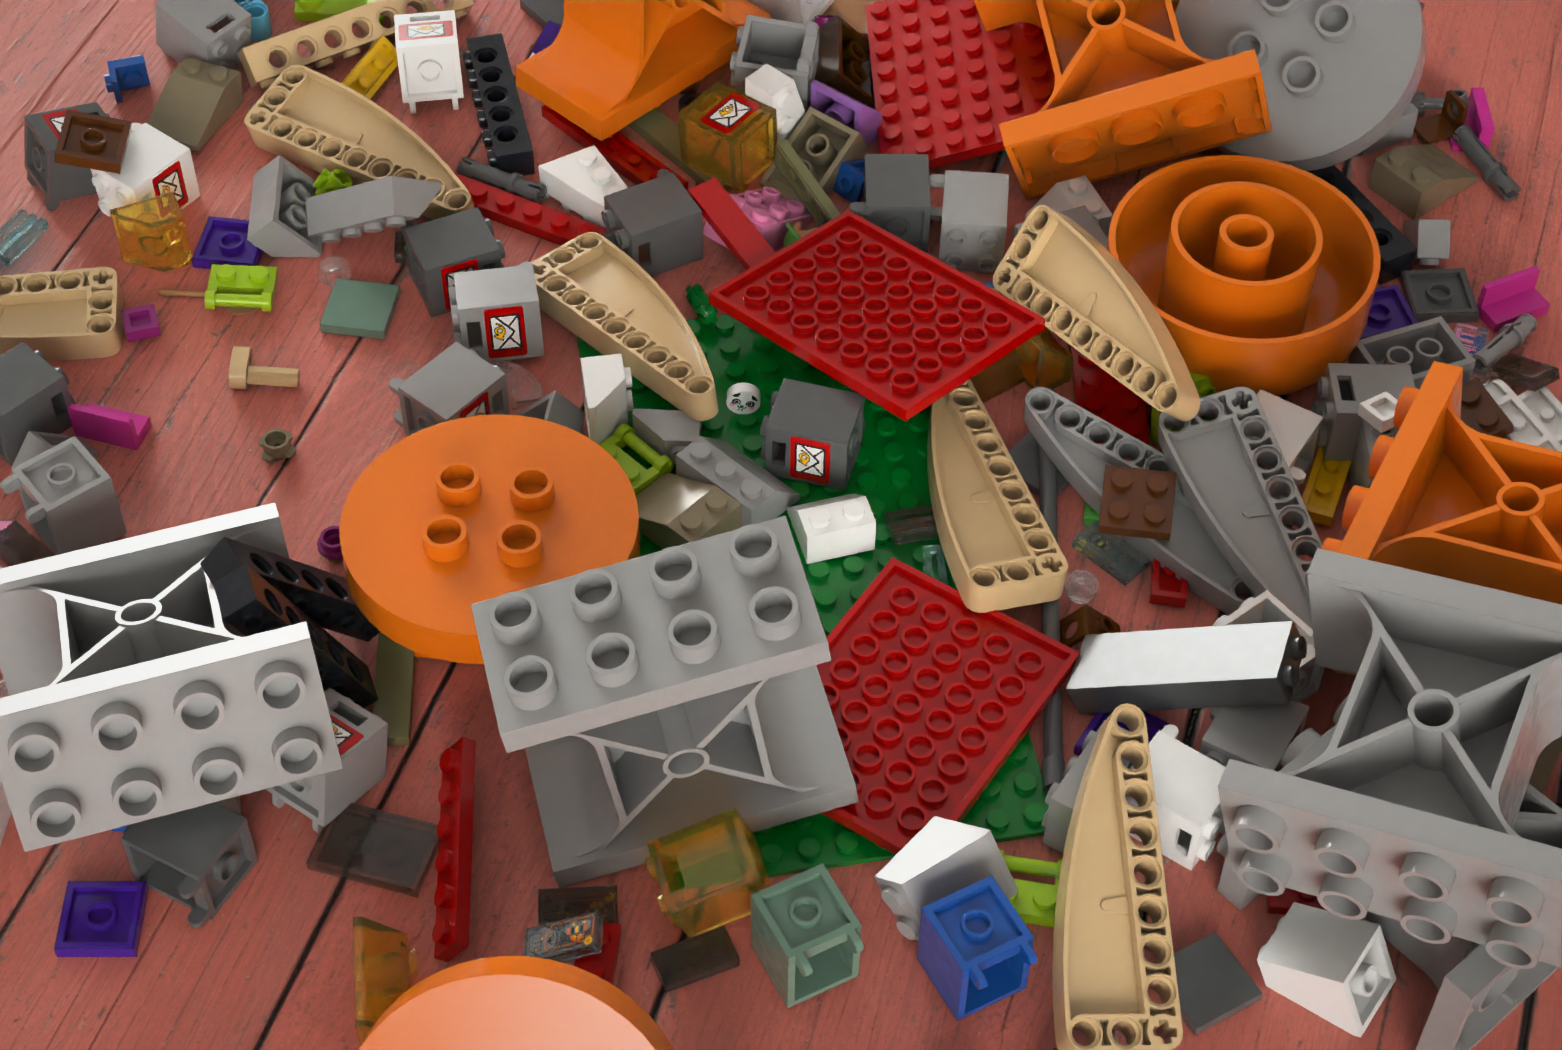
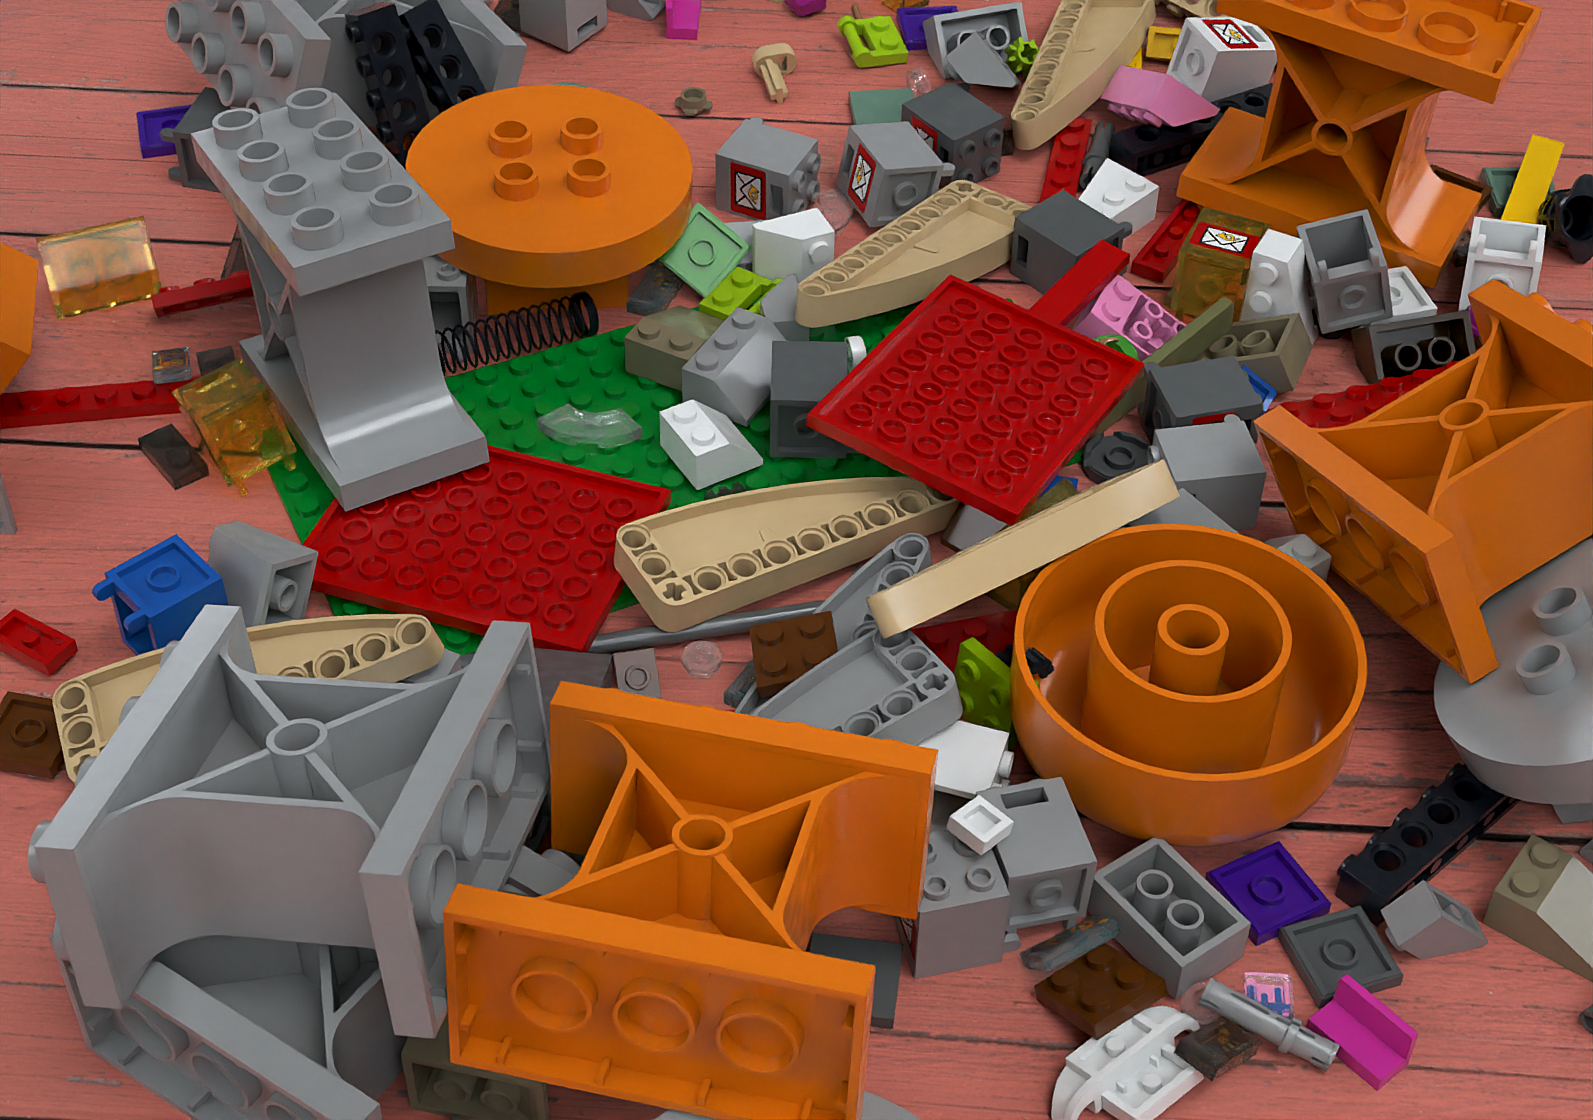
camera: 75 degrees right, 5 degrees down
(478, 111) = (1154, 98): none -> bright pink slope
(805, 935) = (169, 487): sand green container -> none
(846, 110) = (1329, 355): medium lavender slope -> none

